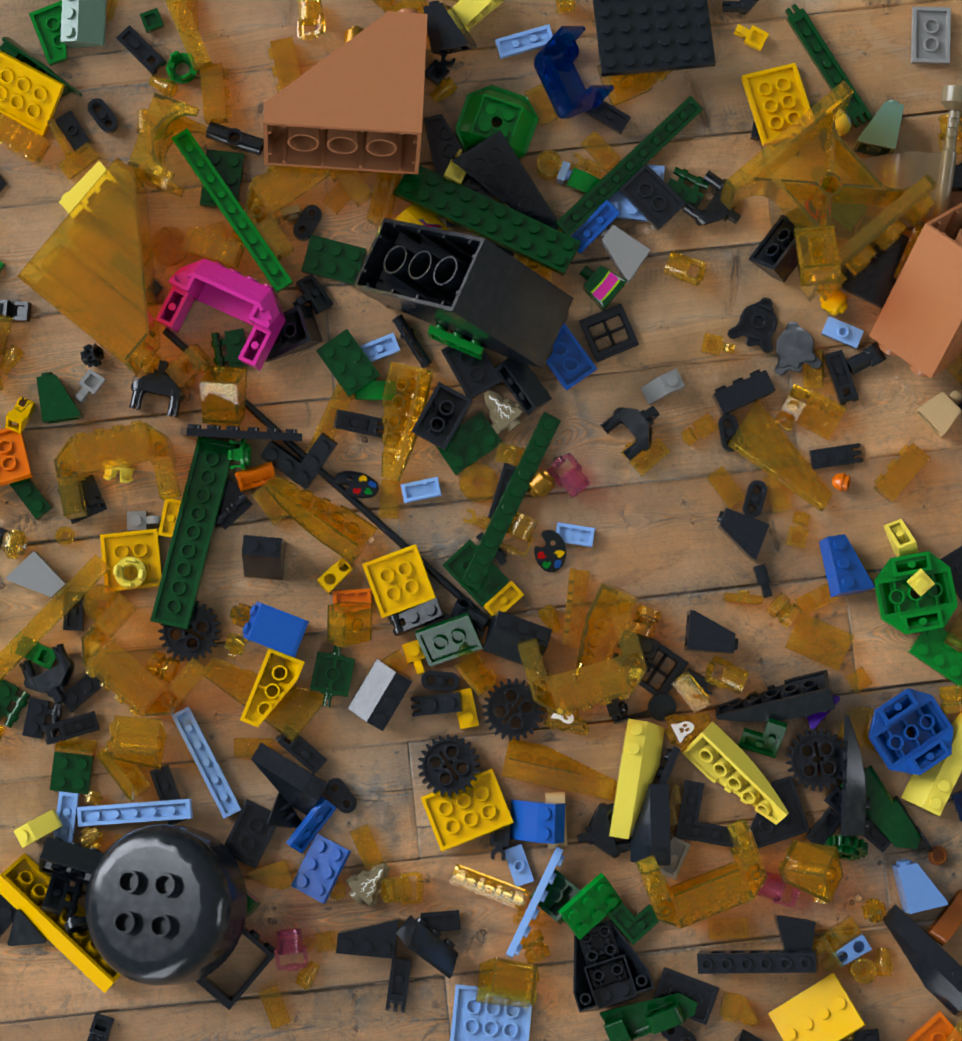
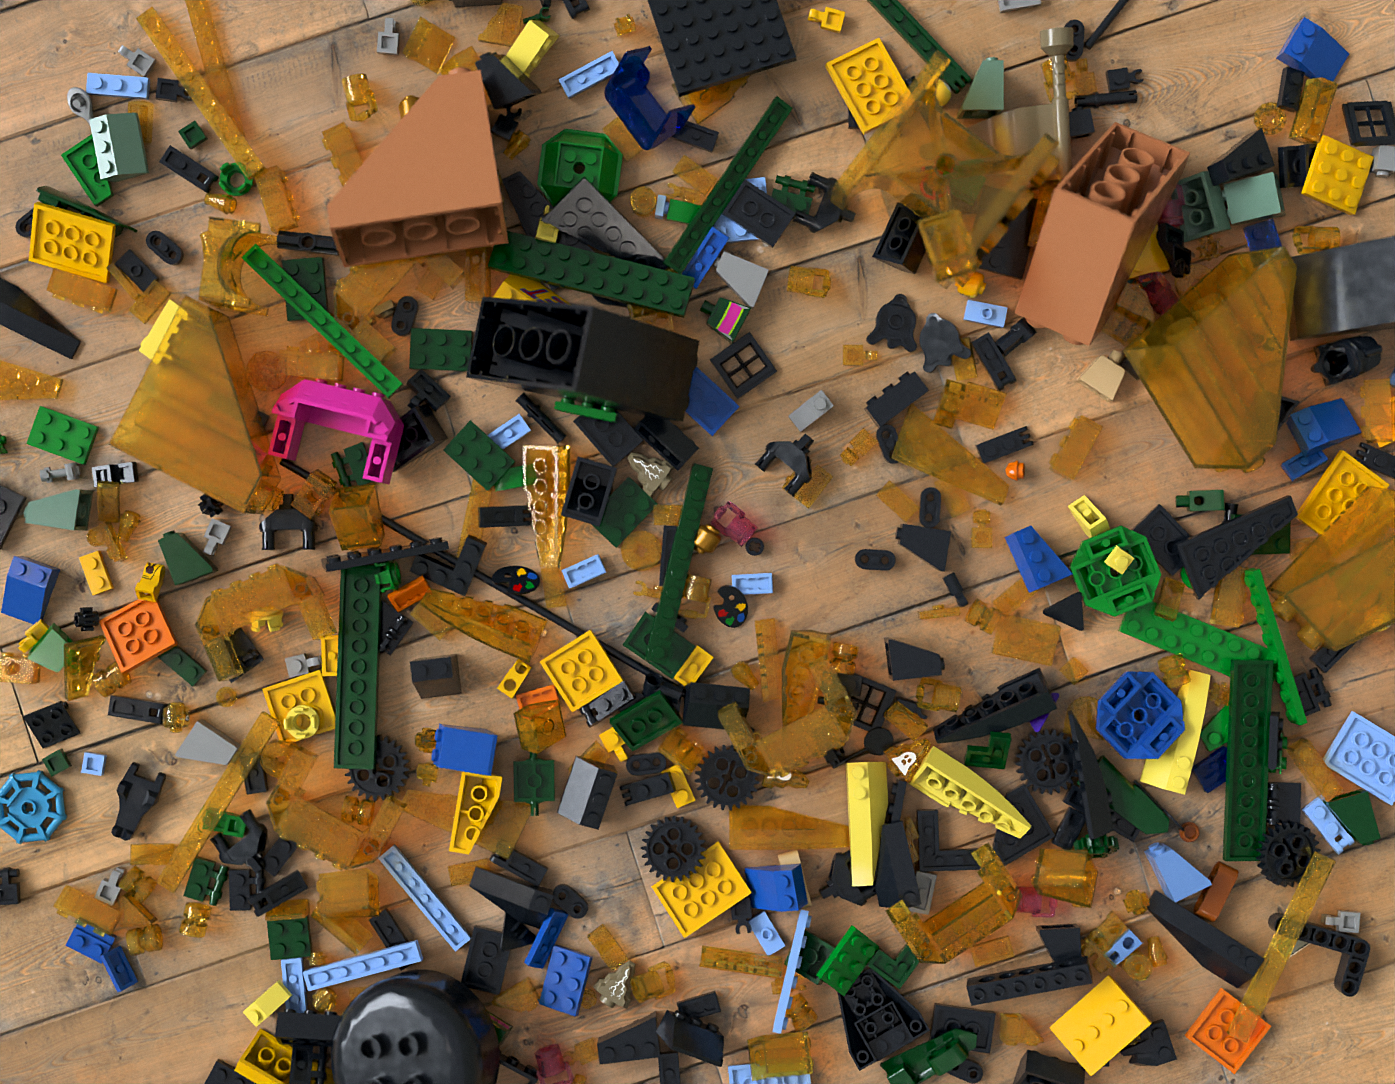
camera: 15 degrees left, 5 degrees up
(581, 506) = (752, 552): none -> black bush
(693, 536) = (874, 559): none -> black plate
(864, 622) = (1068, 611): none -> black piece

